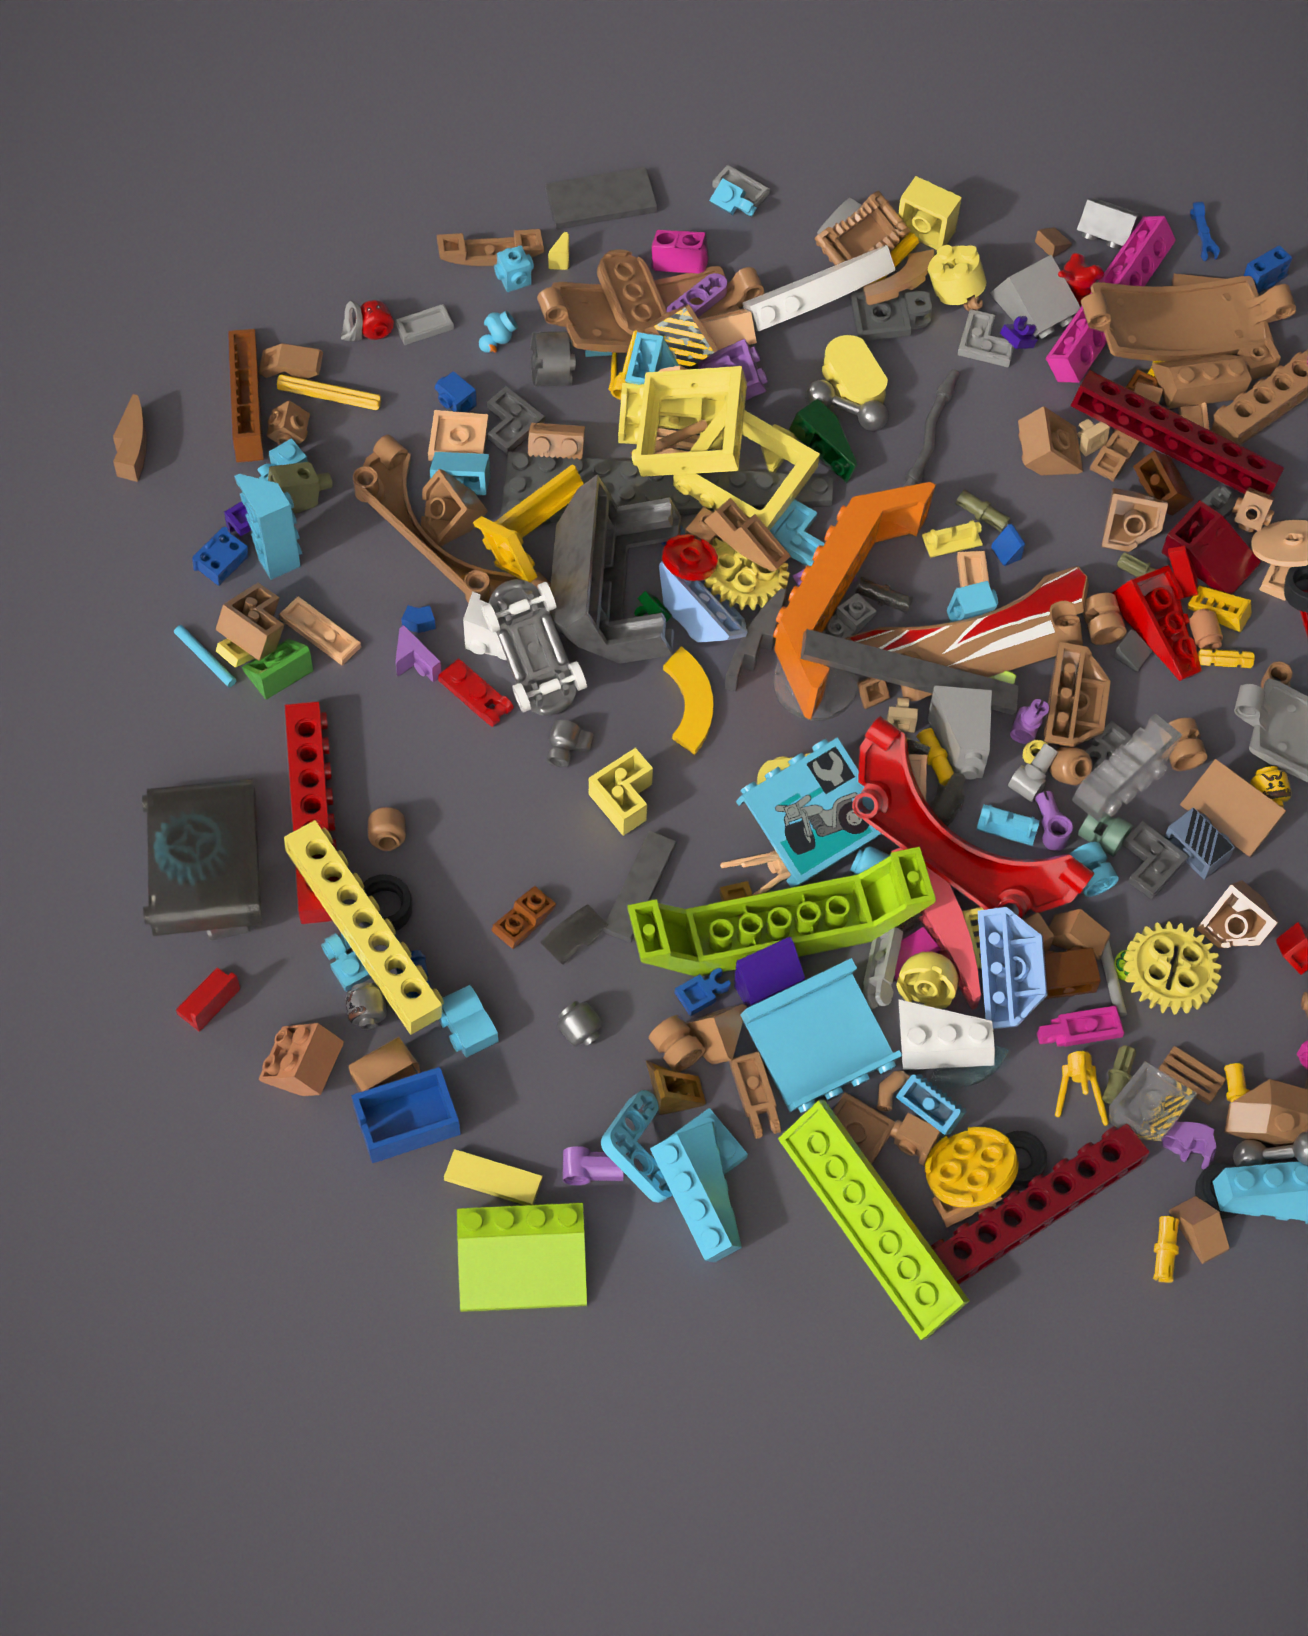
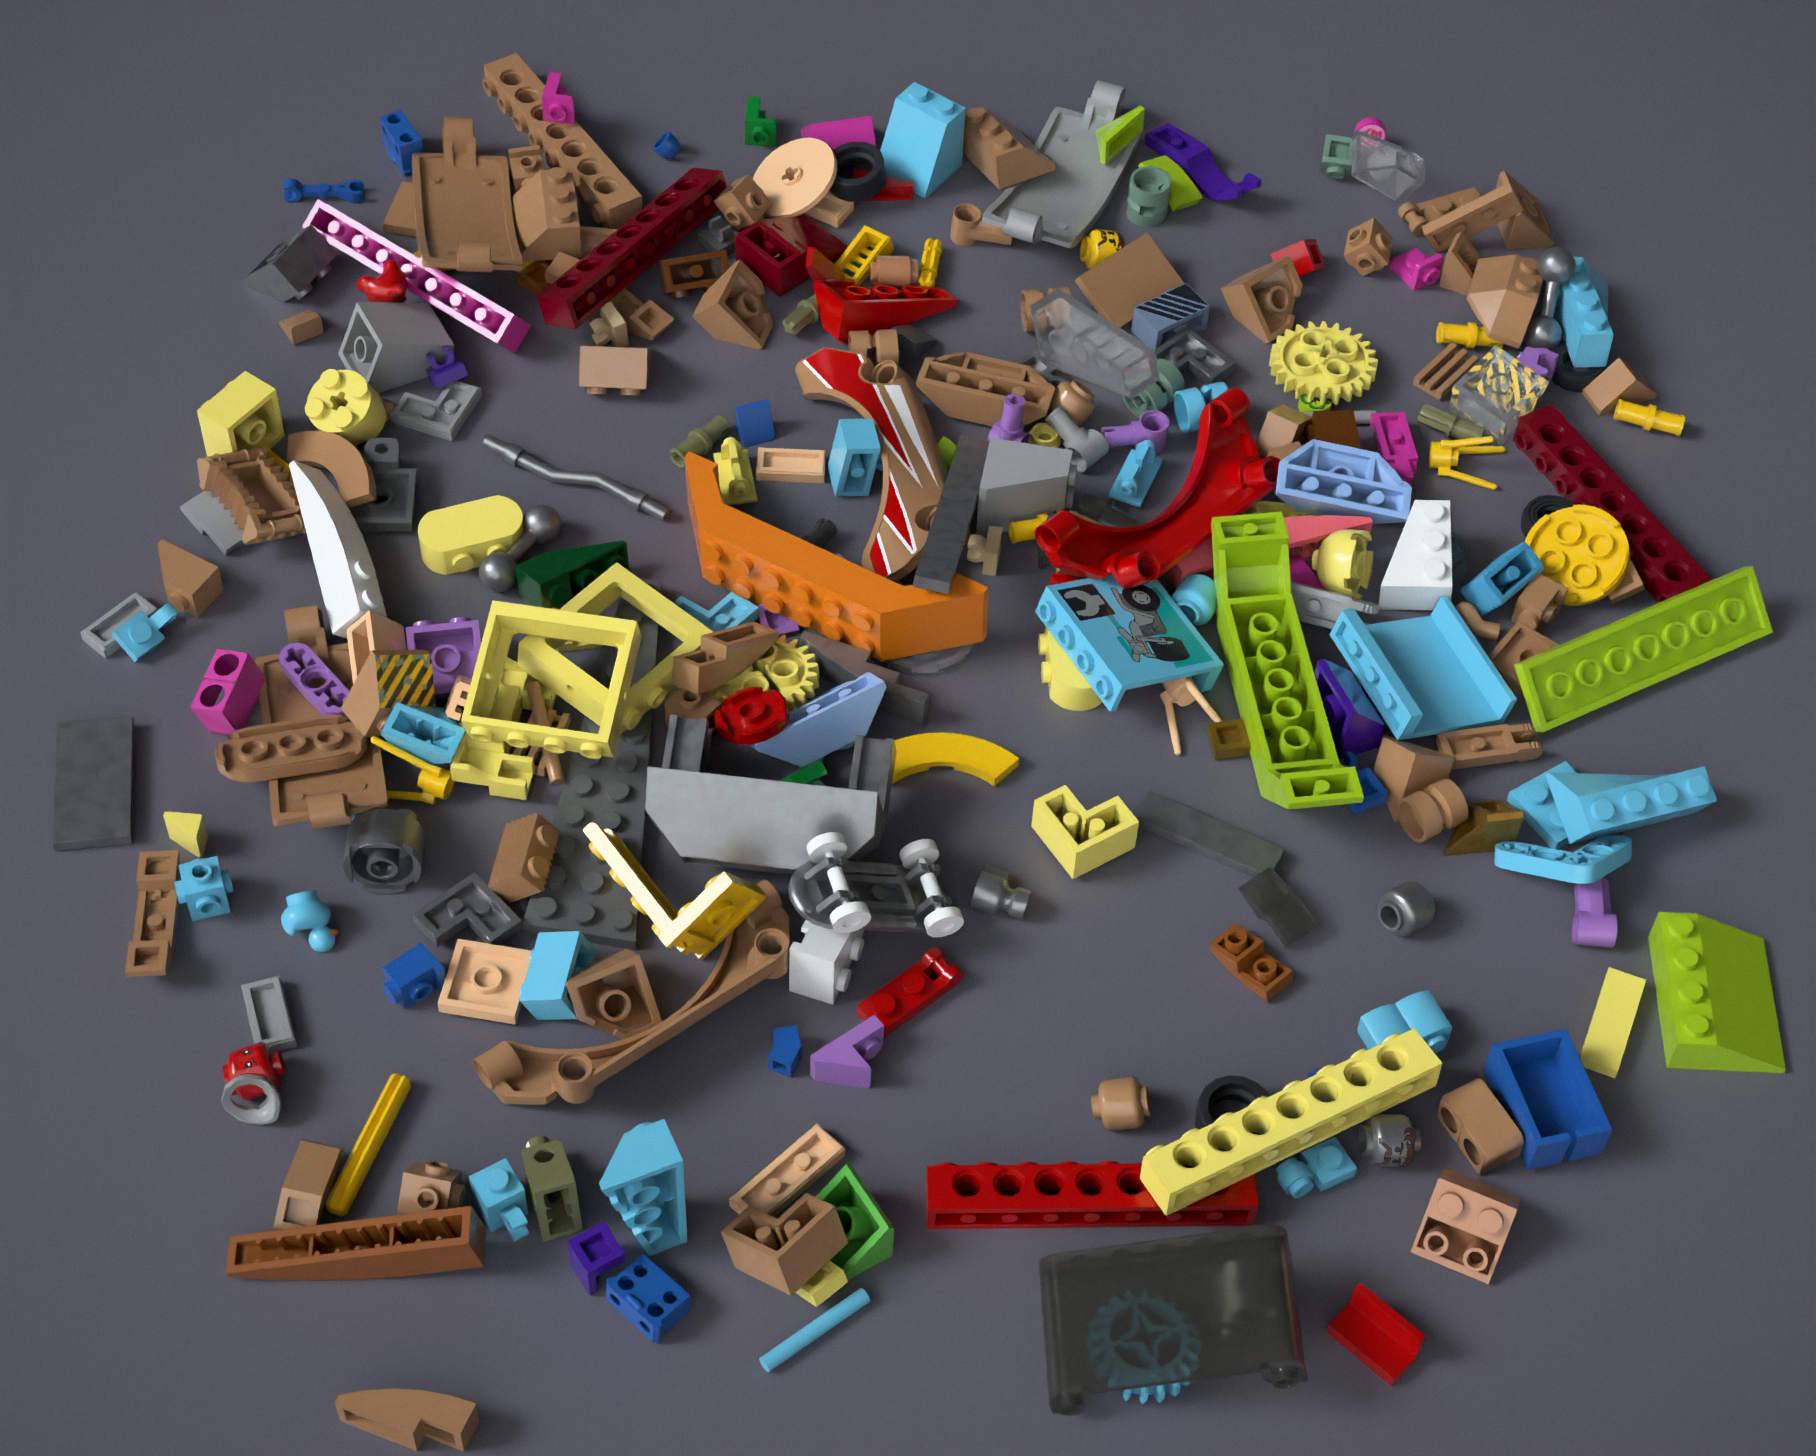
camera: 85 degrees left, 10 degrees down
(781, 212) = (188, 579): none -> medium nougat slope

